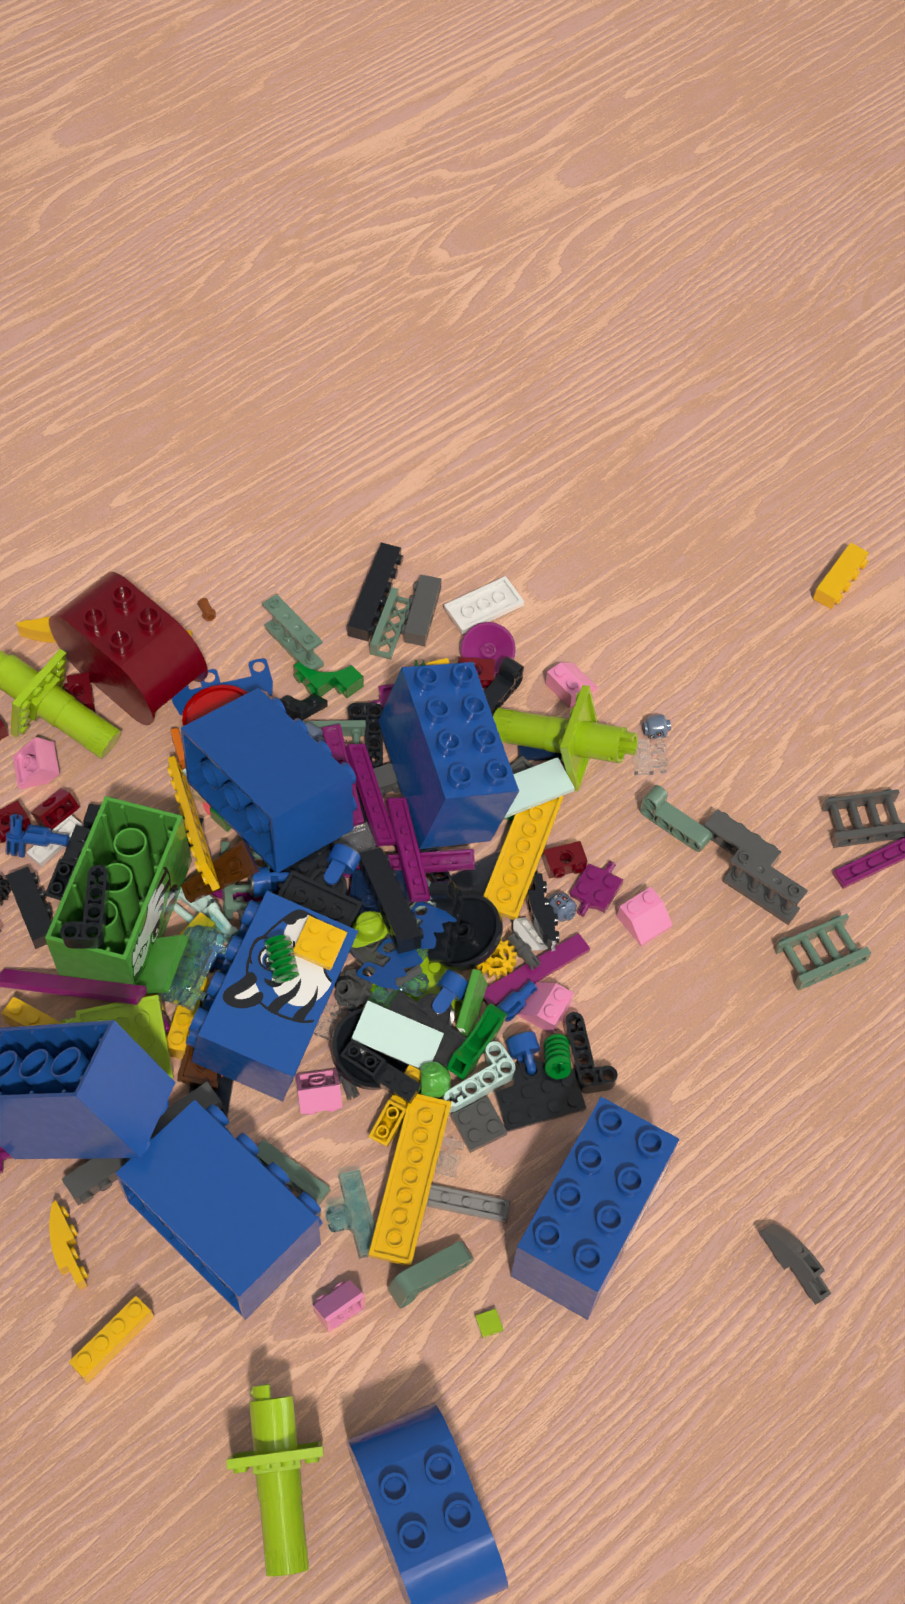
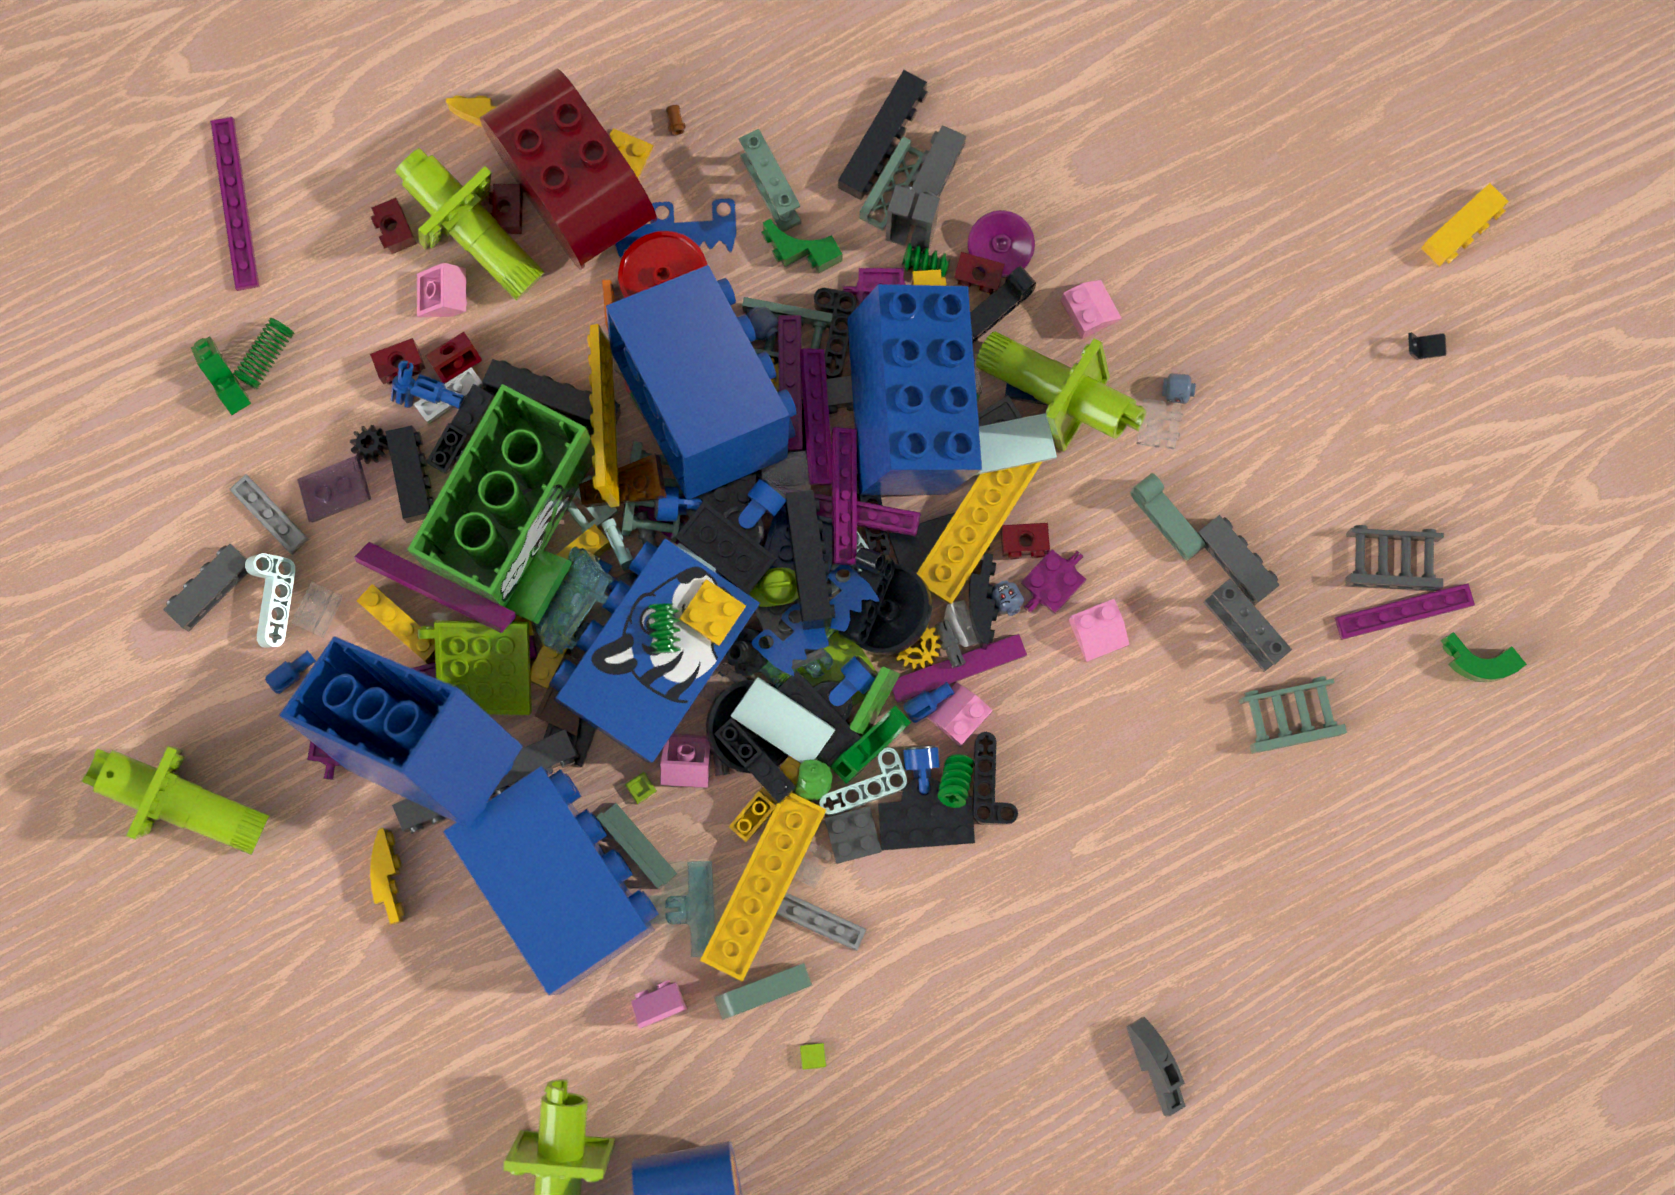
camera: 15 degrees right, 20 degrees up
(92, 906) = (462, 526): black beam -> none
(111, 1339) = (417, 988): yellow brick -> none
(283, 1123) = (640, 787): none -> lime tile
(304, 708) = (760, 281): black plate -> none
(413, 632) = (910, 209): none -> dark grey piece
(484, 604) = (1011, 179): white plate -> none
(593, 1207) = (951, 971): blue brick -> none
(841, 663) = (1427, 346): none -> black bracket

